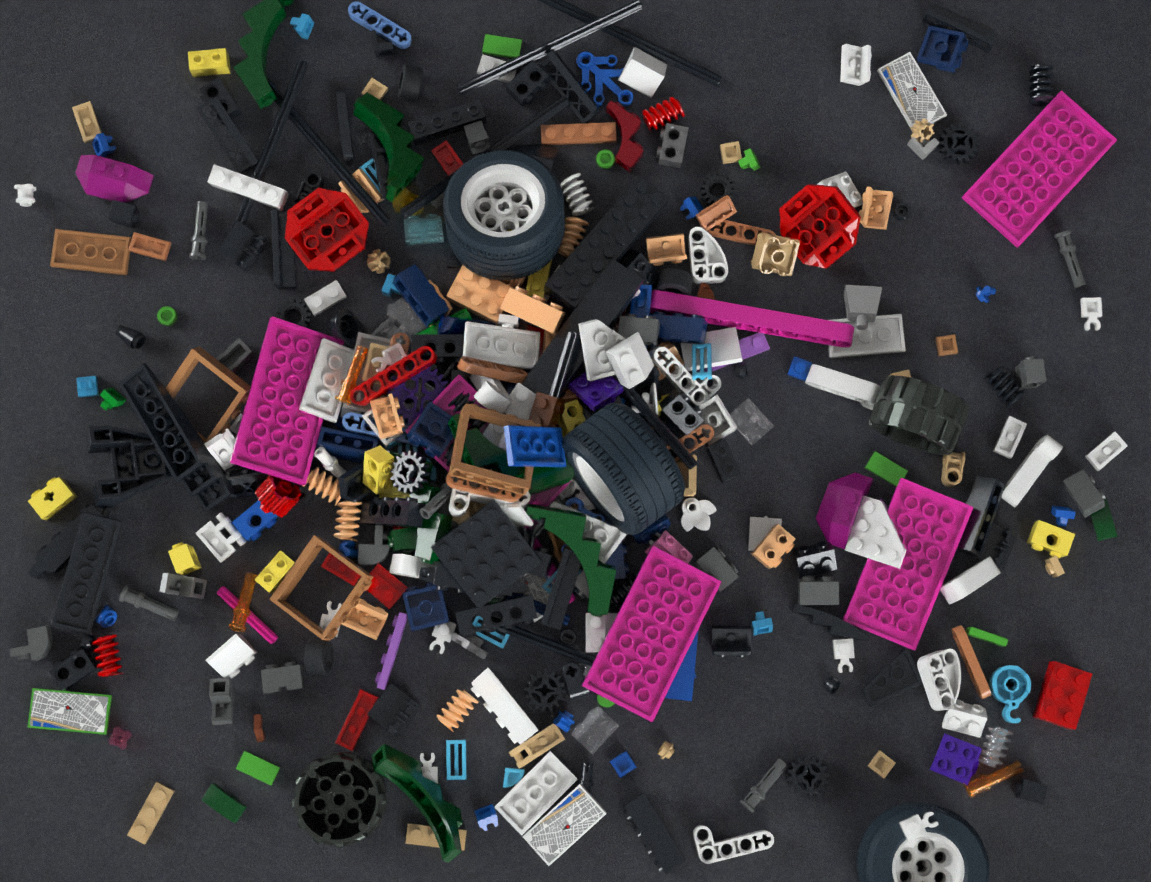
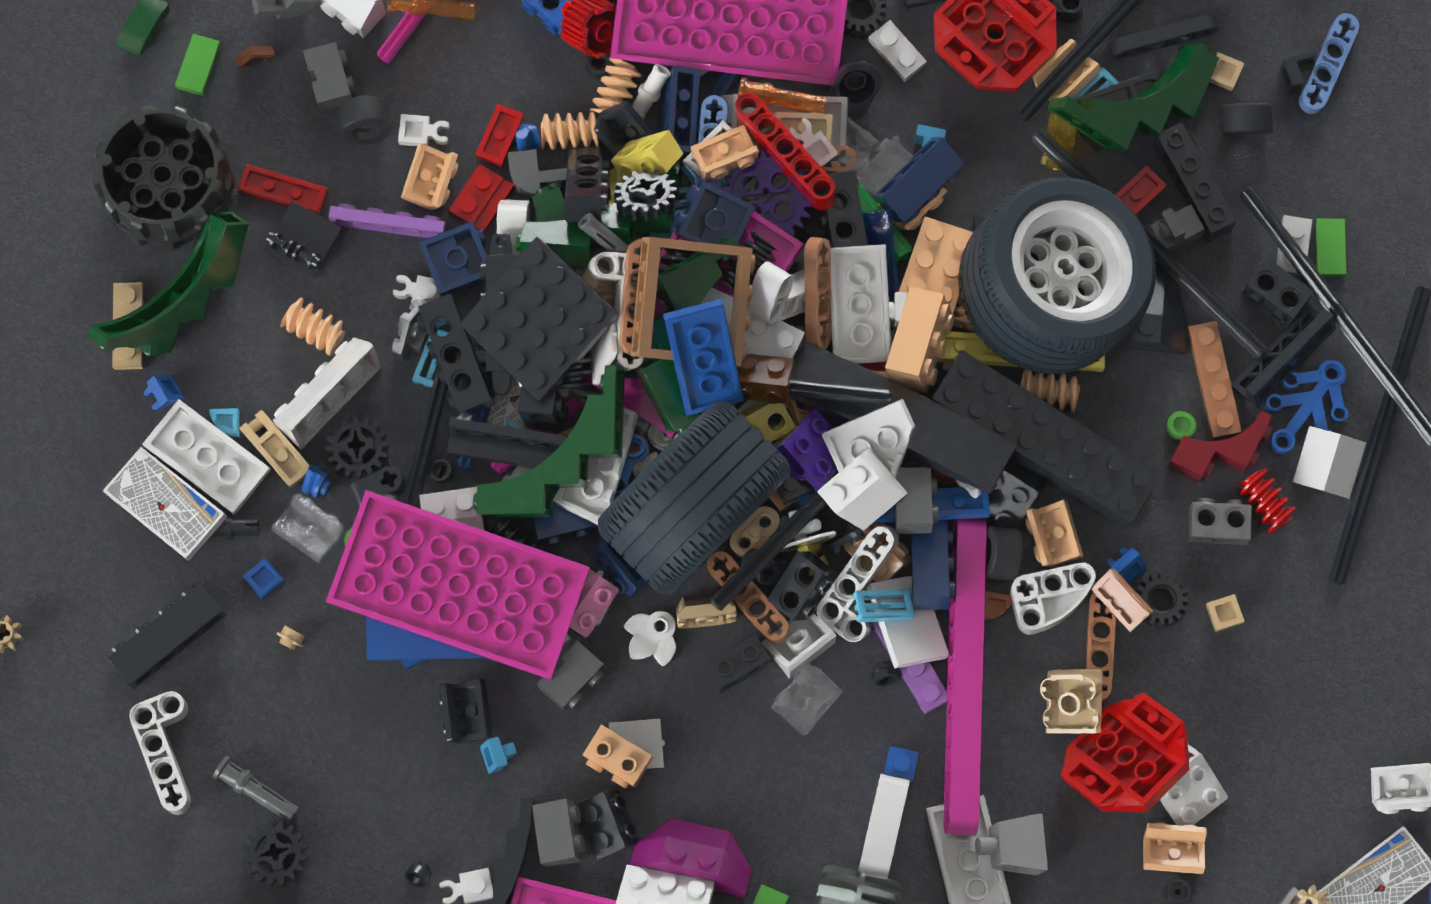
camera: 90 degrees right, 5 degrees down
(275, 572) = (480, 43): light yellow brick -> none
(298, 570) = (477, 68): medium nougat window -> none
(324, 381) = (768, 61): white tile -> none
(378, 261) = (958, 120): tan gear -> none
(423, 230) = (1019, 164): clear light blue brick -> none
(427, 770) = (220, 300): white plate -> none
(456, 762) = (241, 349): medium azure tile -> none
(575, 195) = (1113, 387): white piece -> none
(749, 161) = (1217, 644): bright green tile -> none

